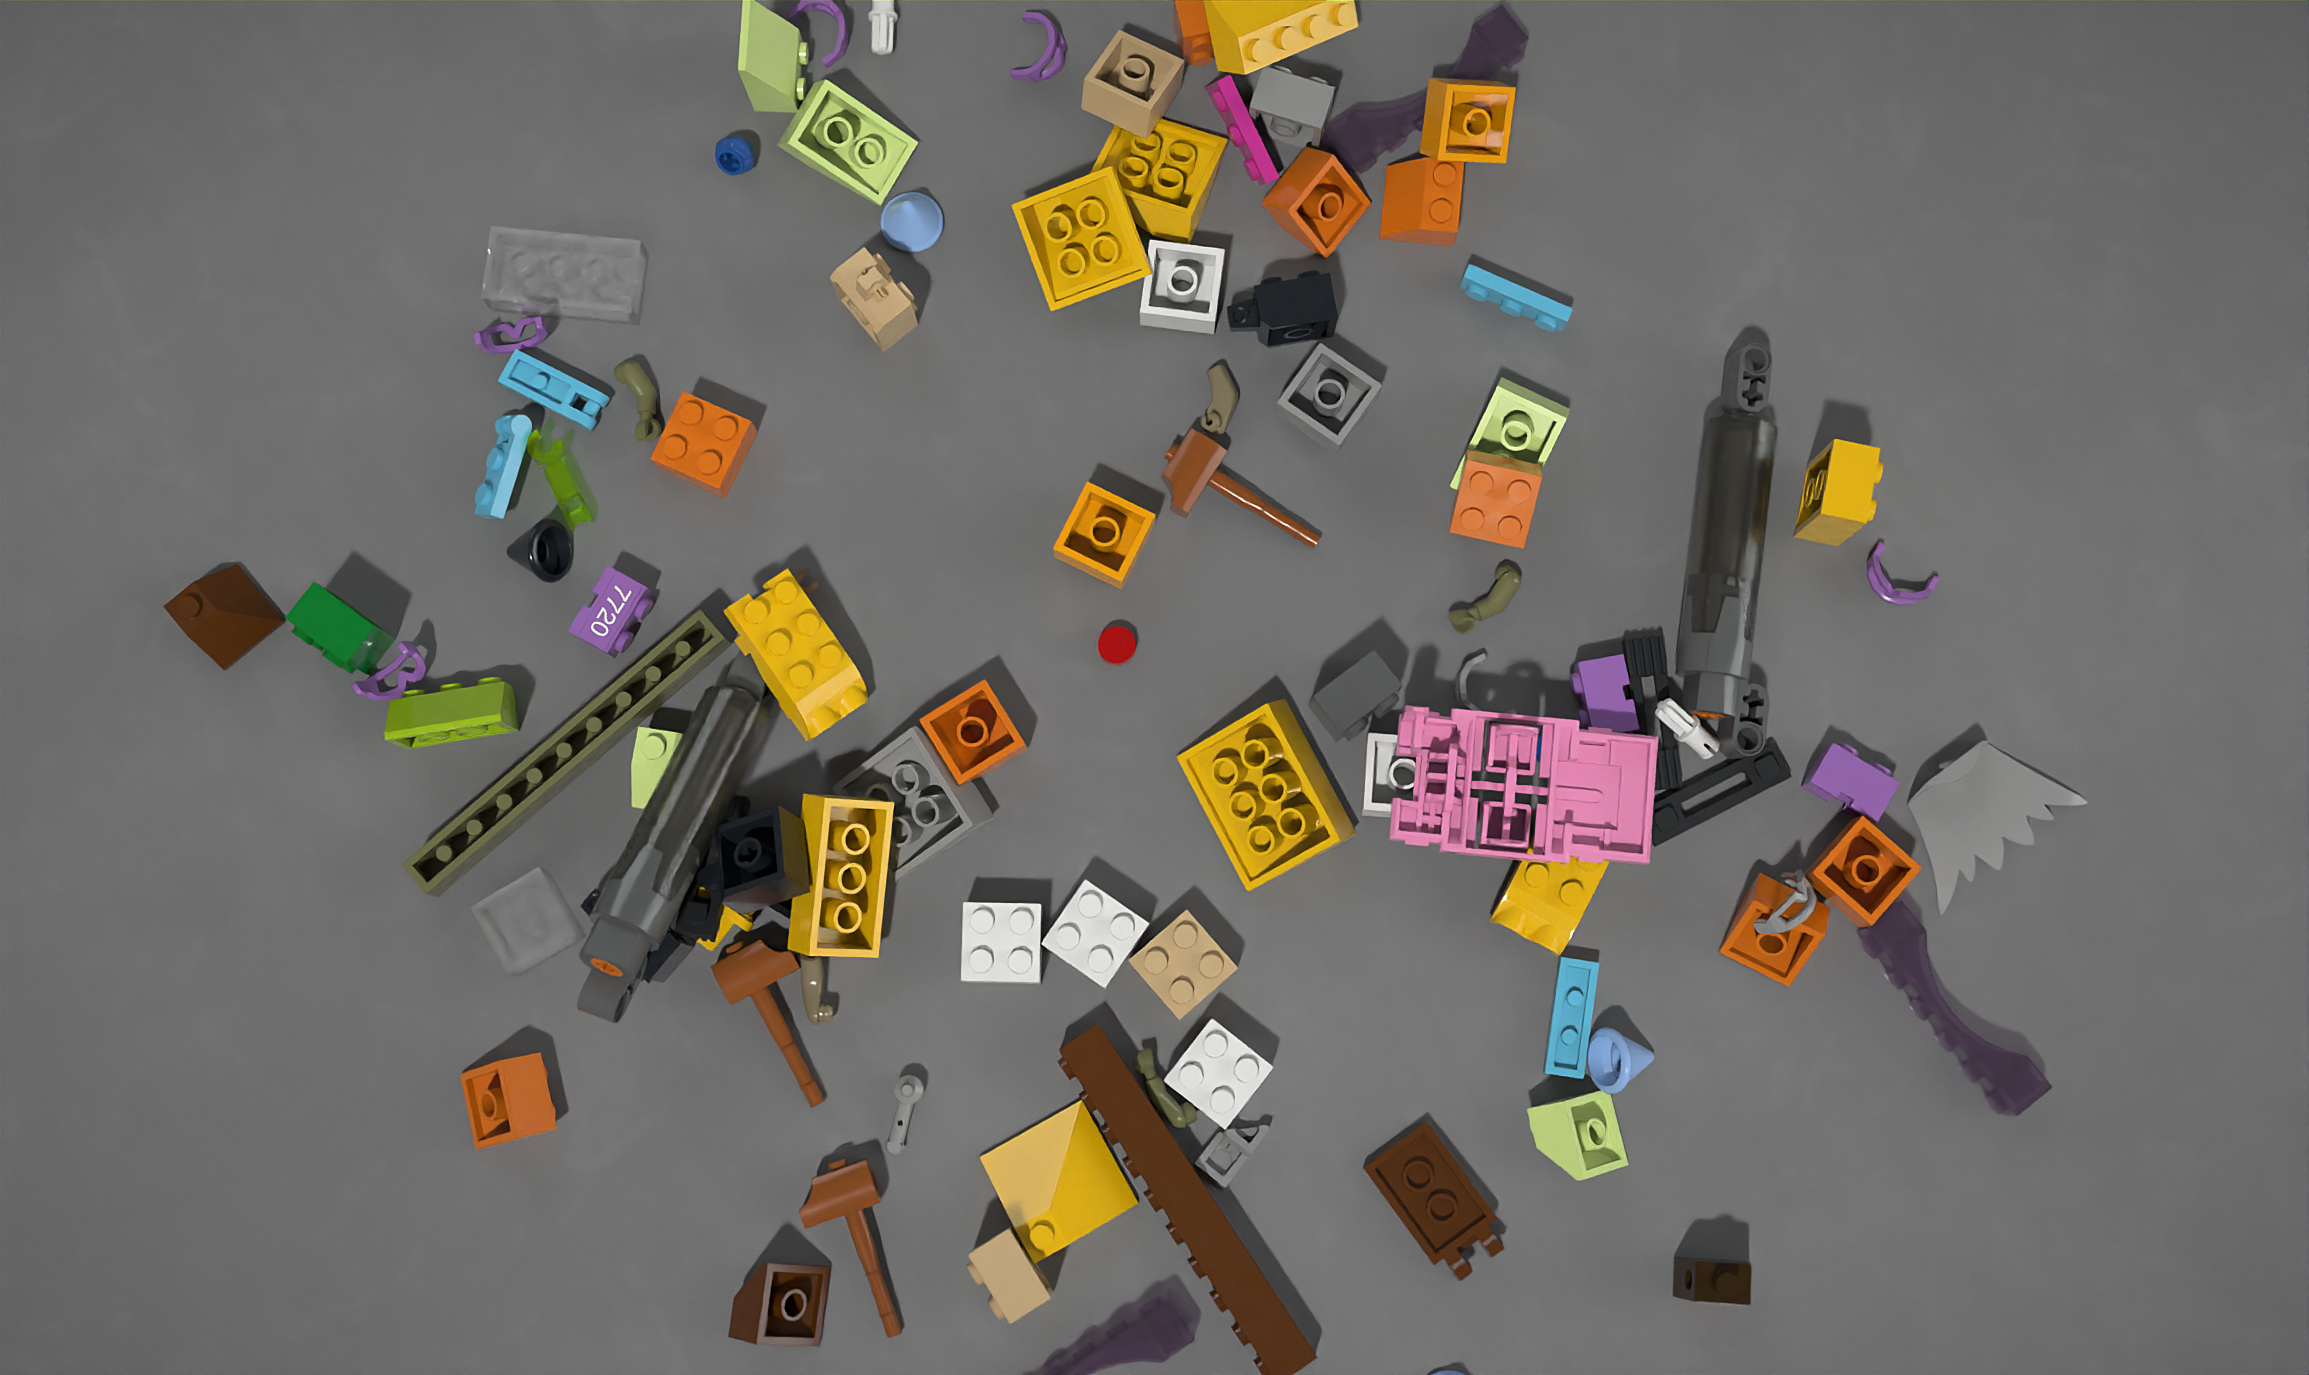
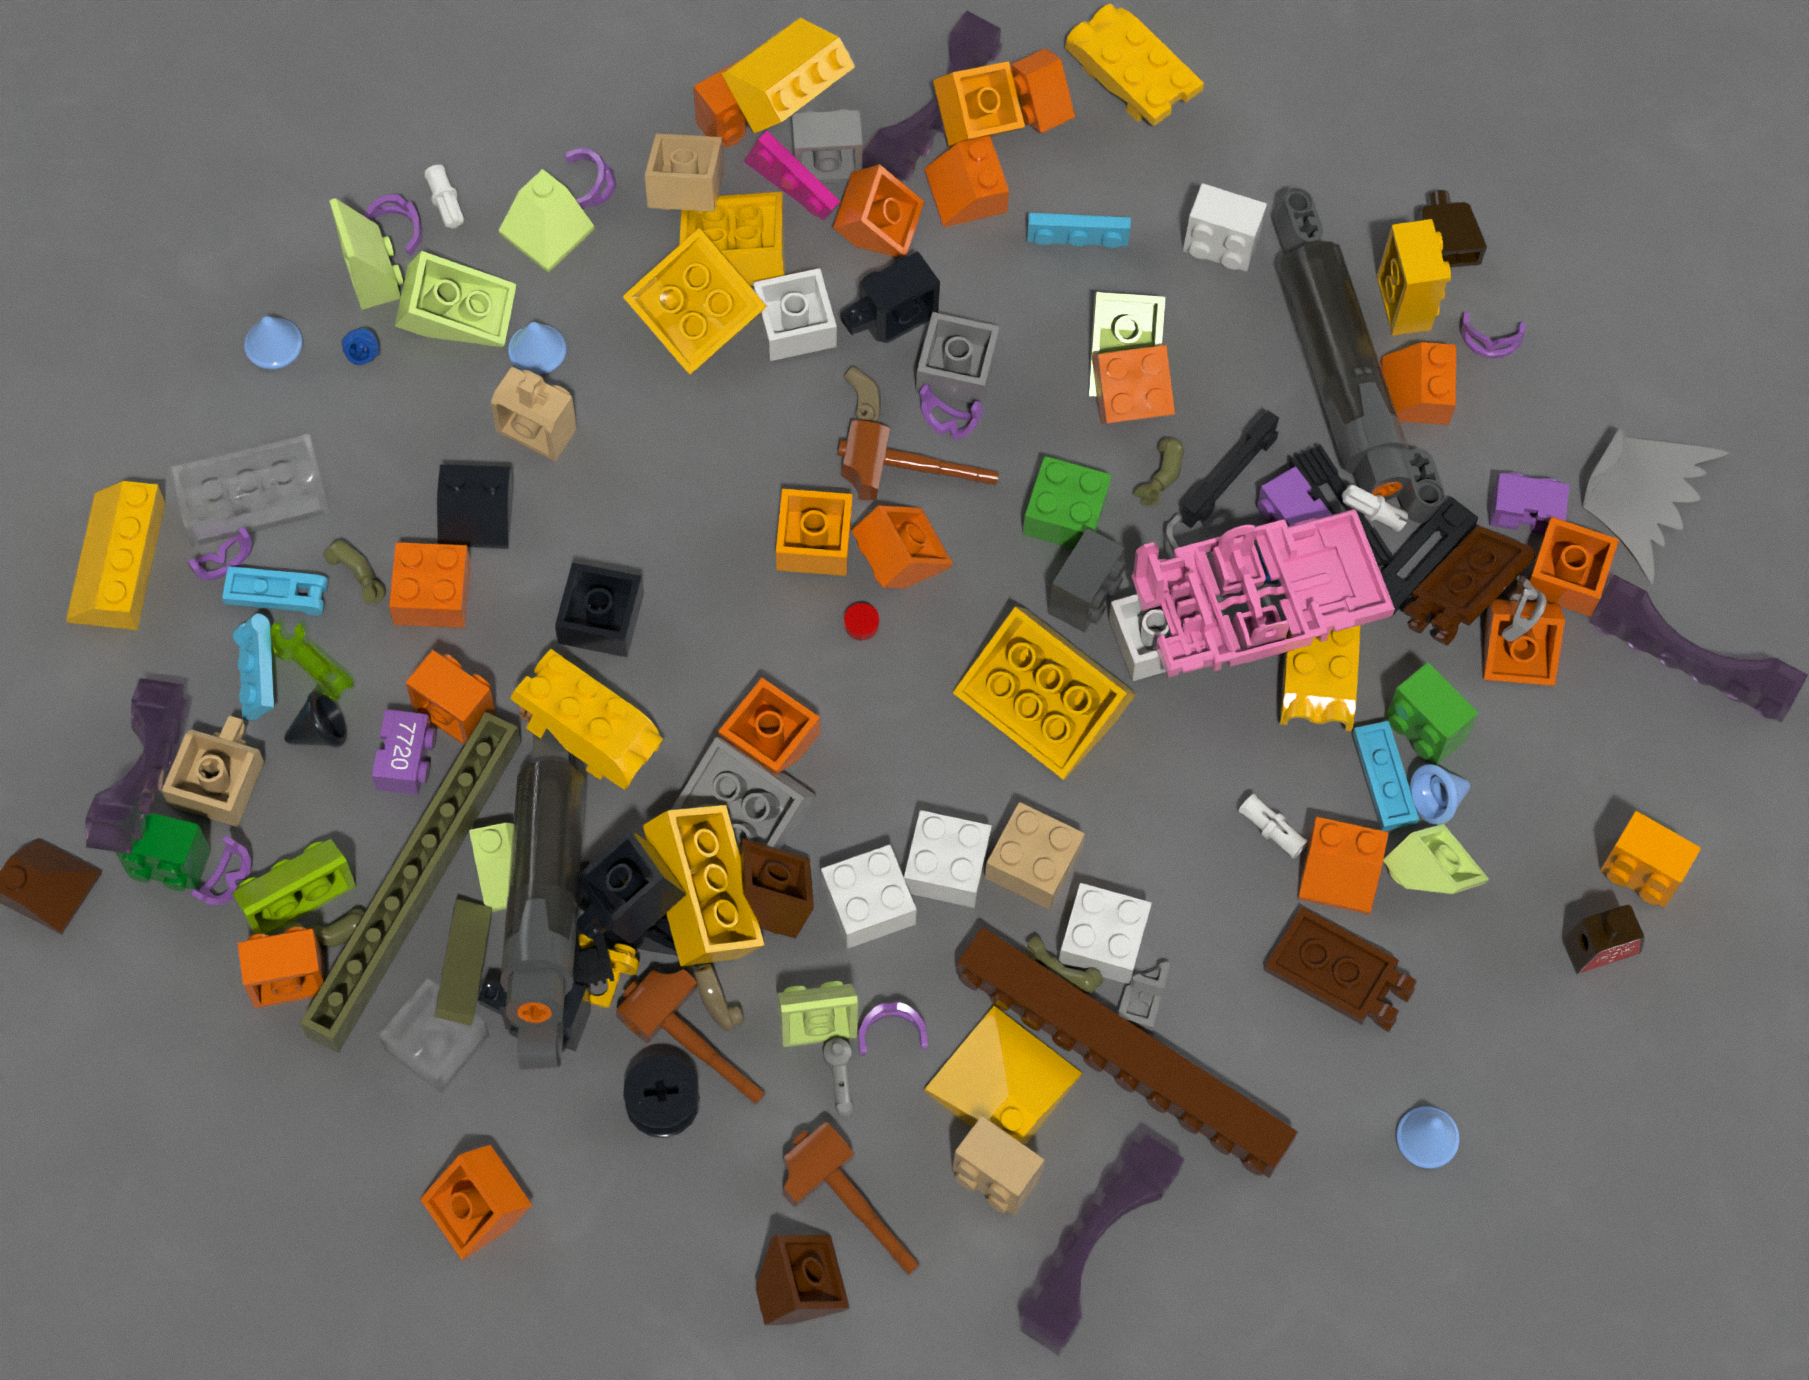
camera: 25 degrees left, 15 degrees down
(294, 592) = (120, 811): none -> clear purple arch
(409, 797) = (282, 967): none -> orange brick
(415, 295) = (117, 556): none -> yellow slope
(439, 555) = (214, 774): none -> tan hinge
(476, 776) = (336, 933): none -> olive arm
(581, 861) = (463, 962): none -> olive tile
(653, 116) = (273, 343): none -> light blue hat
(672, 576) = (449, 695): none -> orange brick
(706, 1082) = (641, 1100): none -> black piece
(780, 375) = (474, 505): none -> black slope
(858, 537) = (599, 609): none -> black brick
(900, 1043) = (817, 1013): none -> yellowish green slope
(913, 900) = (776, 887): none -> reddish brown slope
(973, 84) = (545, 221): none -> yellowish green slope
(985, 1069) = (894, 1009): none -> medium lavender helmet
(1188, 582) = (901, 546): none -> orange slope
(1282, 433) = (930, 401): none -> medium lavender helmet
(1373, 601) = (1065, 502): none -> bright green brick
(1447, 1051) = (1273, 826): none -> white pin
(1485, 1096) = (1342, 865): none -> orange slope
(1511, 653) = (1203, 500): none -> black container
(1541, 128) = (1042, 90): none -> orange brick
(1642, 978) = (1431, 714): none -> bright green brick
(1652, 129) = (1132, 63): none -> yellow piece
(1665, 357) = (1224, 227): none -> white brick
(1747, 845) = (1467, 582): none -> reddish brown tile
(1796, 1220) = (1650, 860): none -> light orange brick
(1798, 606) = (1422, 382): none -> orange slope
(1906, 446) = (1459, 230): none -> dark brown torso

